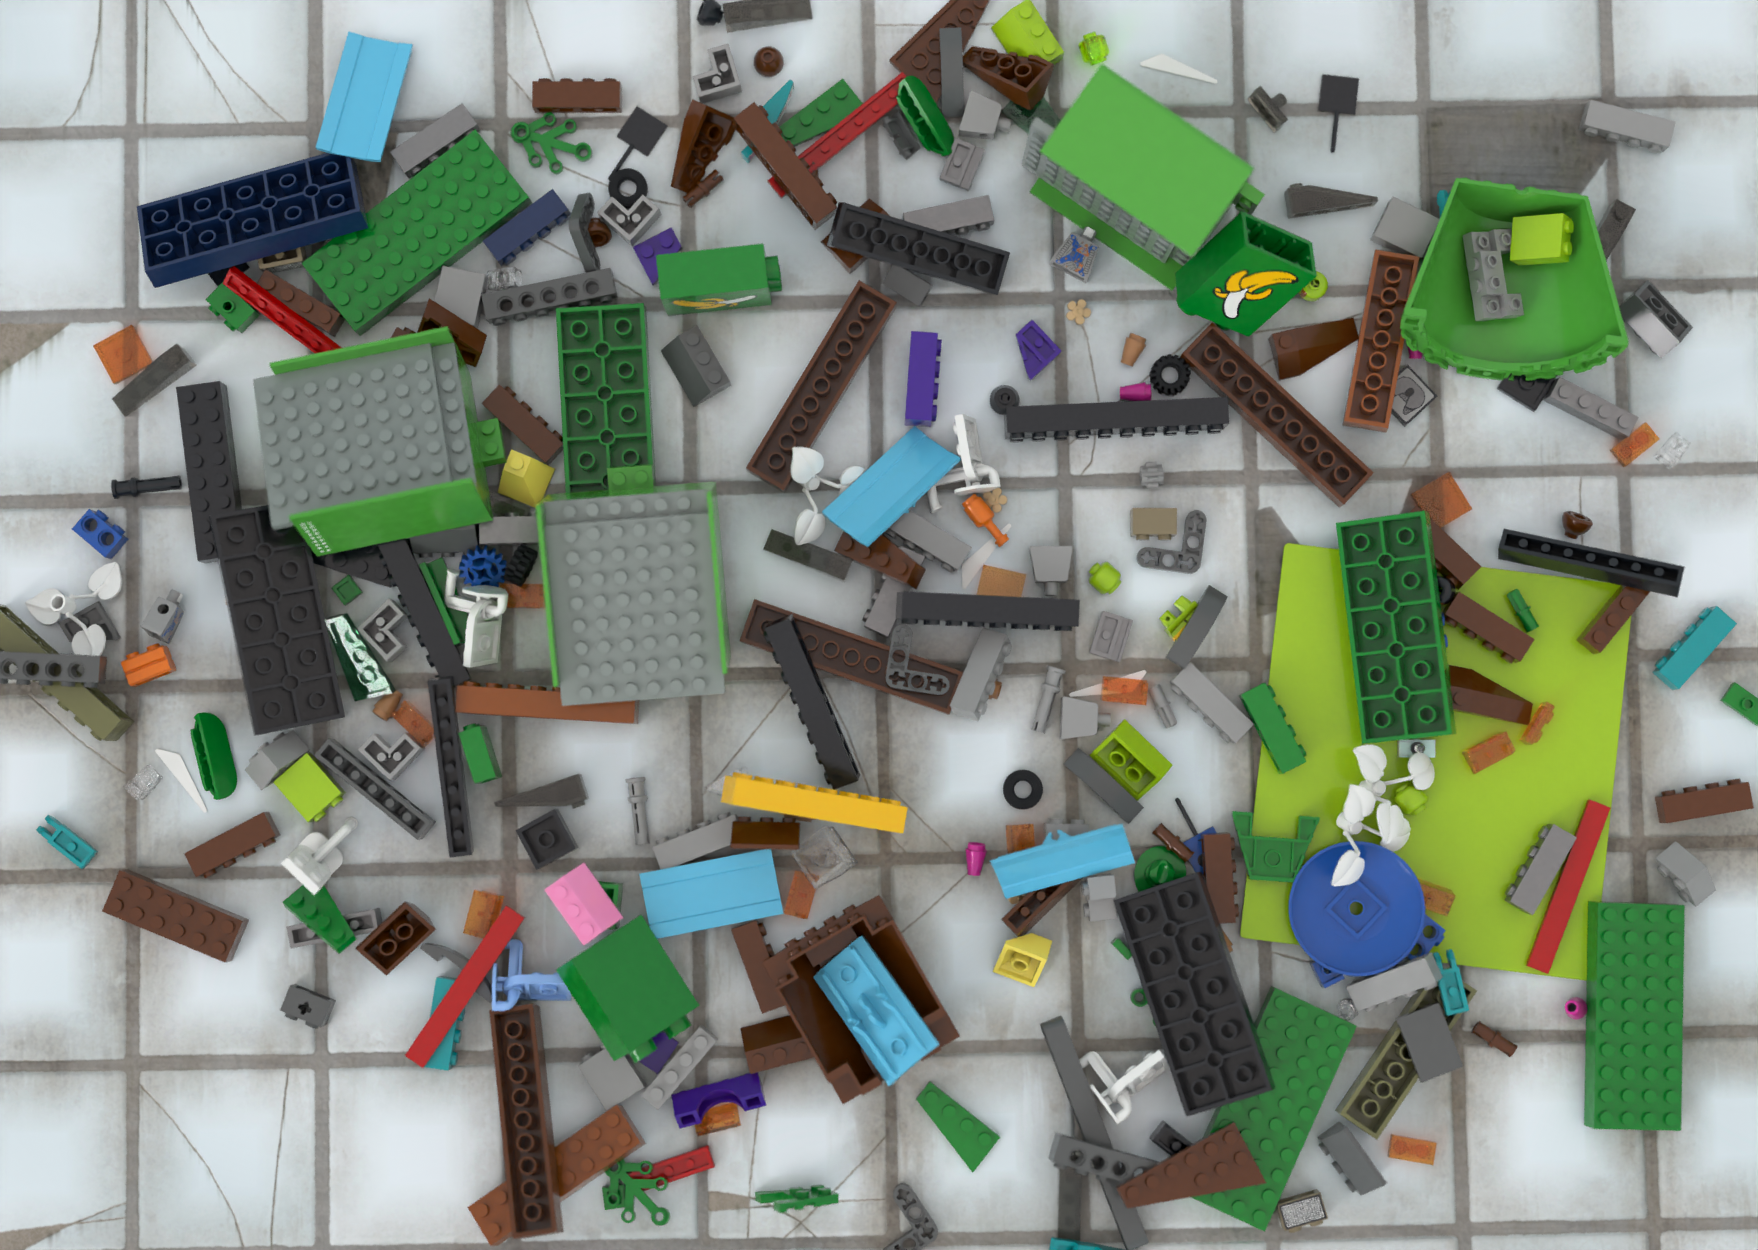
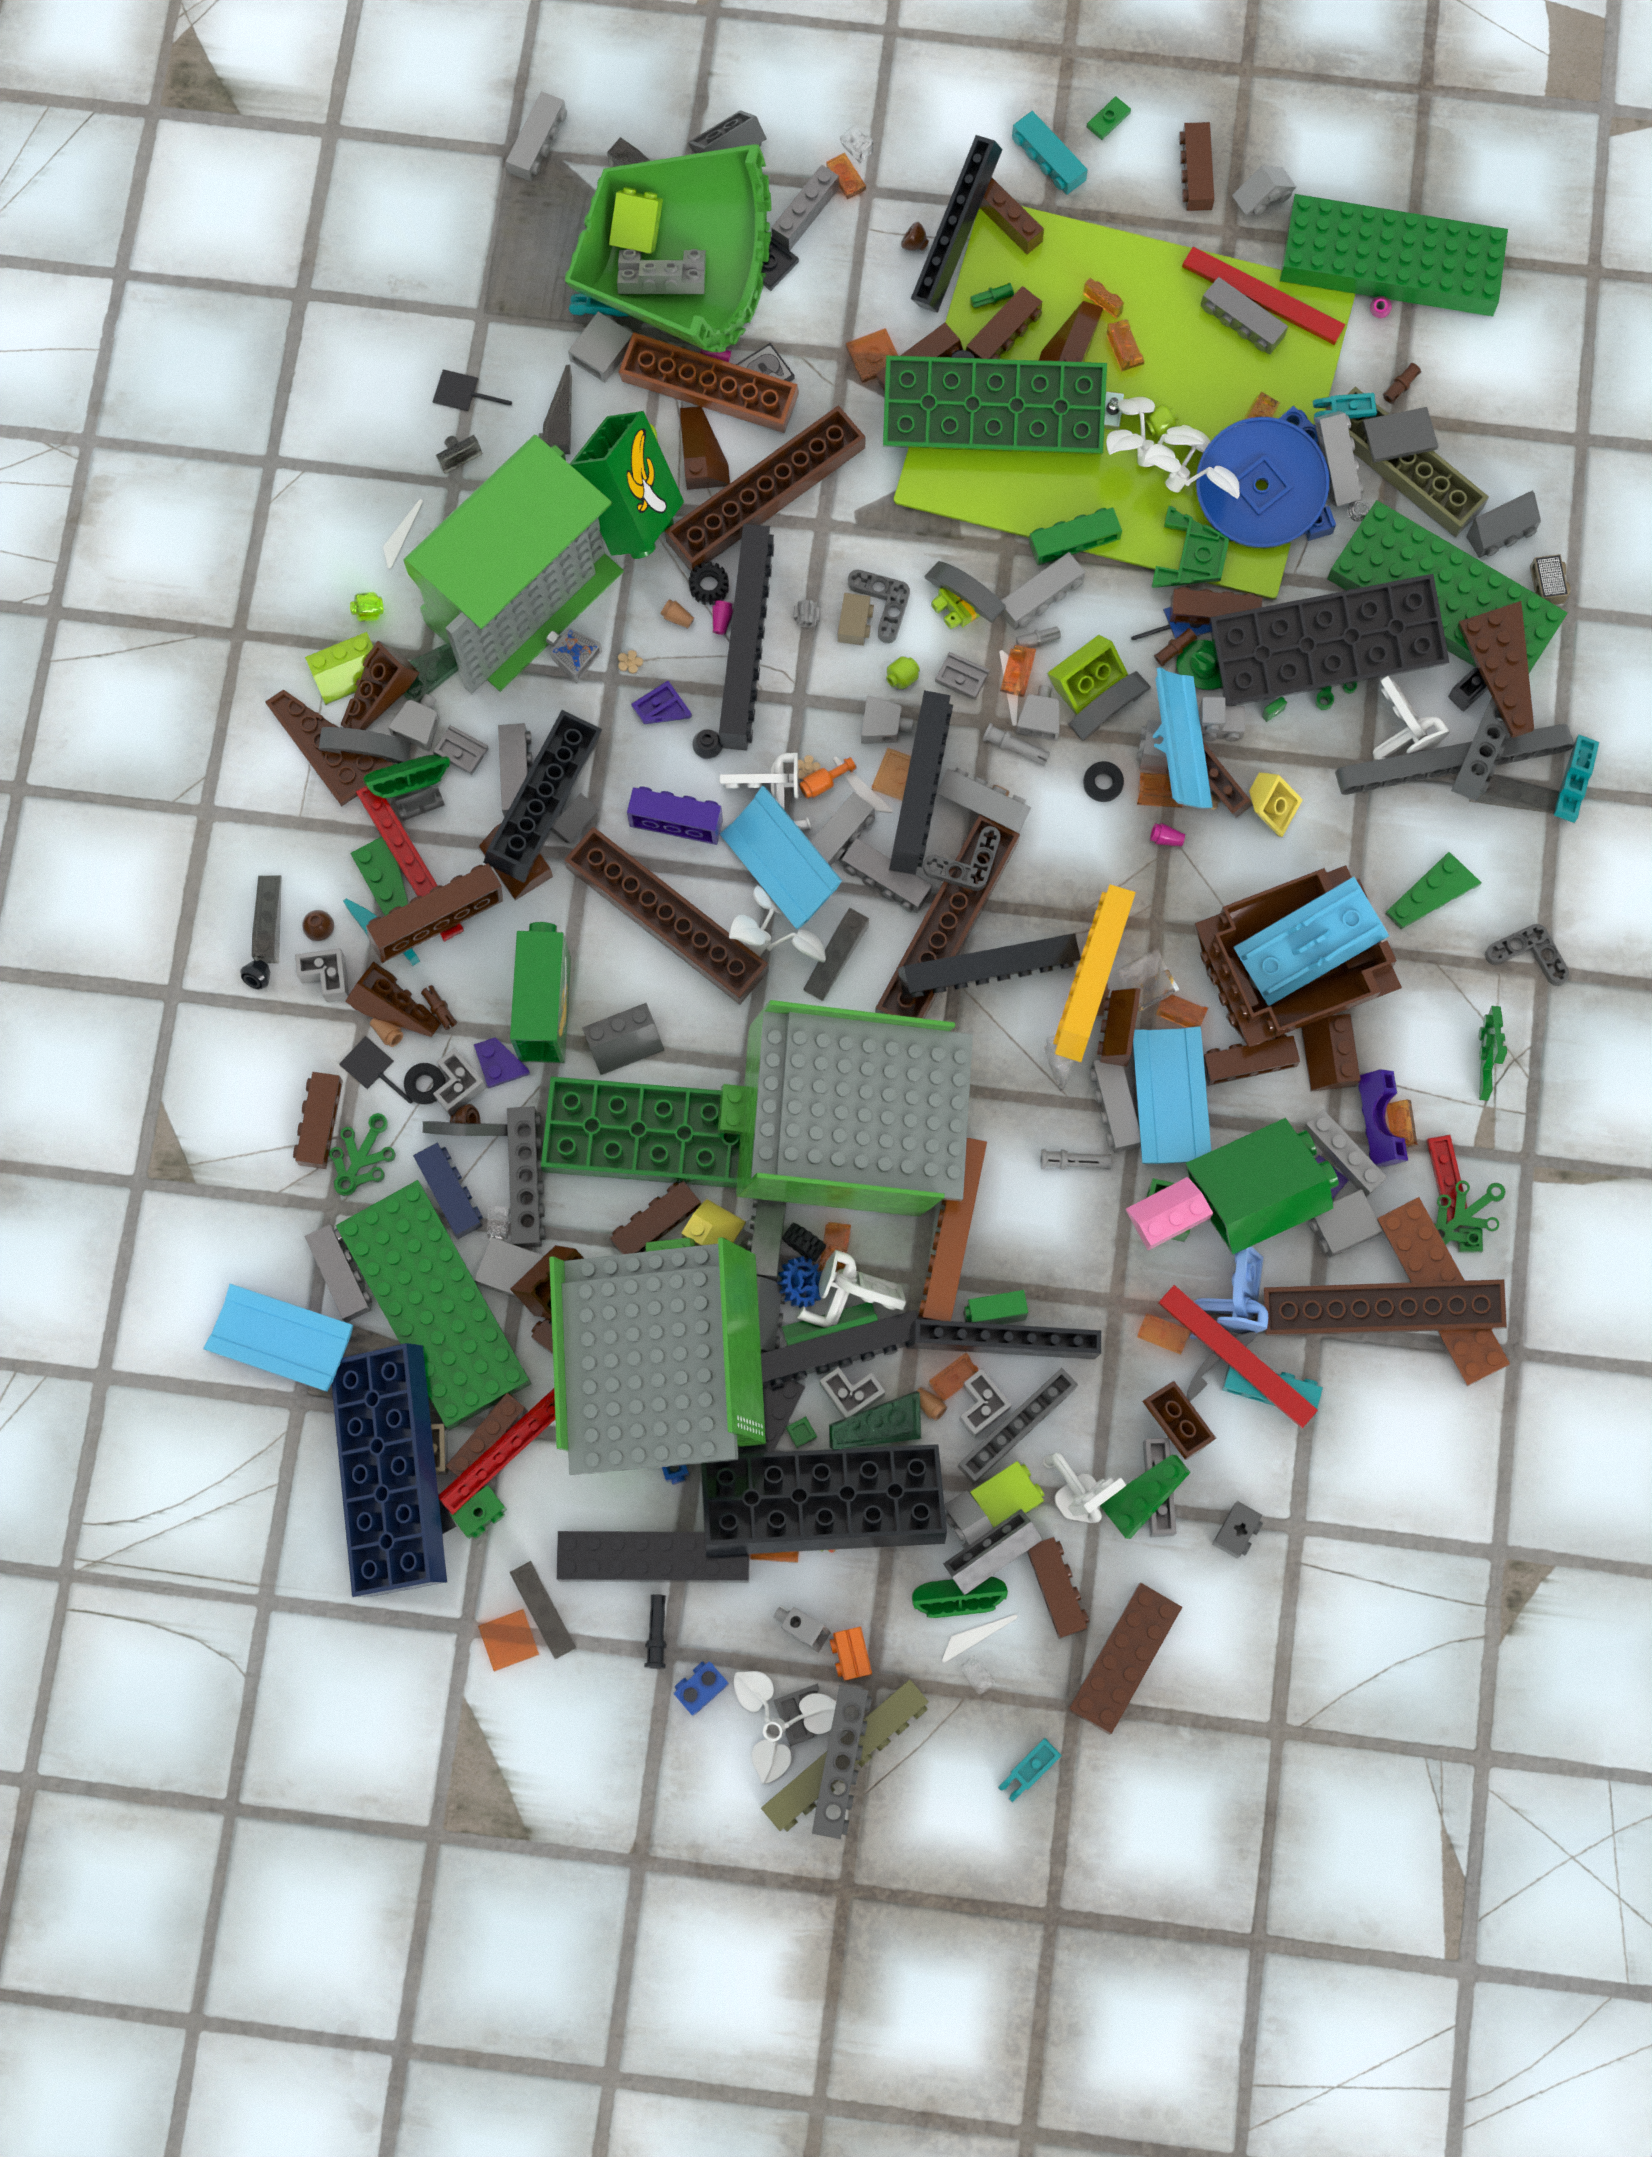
camera: 80 degrees left, 10 degrees down
(250, 780) = (992, 1551): none -> flat silver brick
(547, 839) = (1093, 1254): black brick -> none
(559, 793) = (1047, 1234): clear smoke slope -> none
(670, 145) = (388, 1033): none -> medium nougat cone
(883, 558) = (855, 872): reddish brown wedge -> none
(1412, 1149) = (1500, 472): clear orange plate -> none

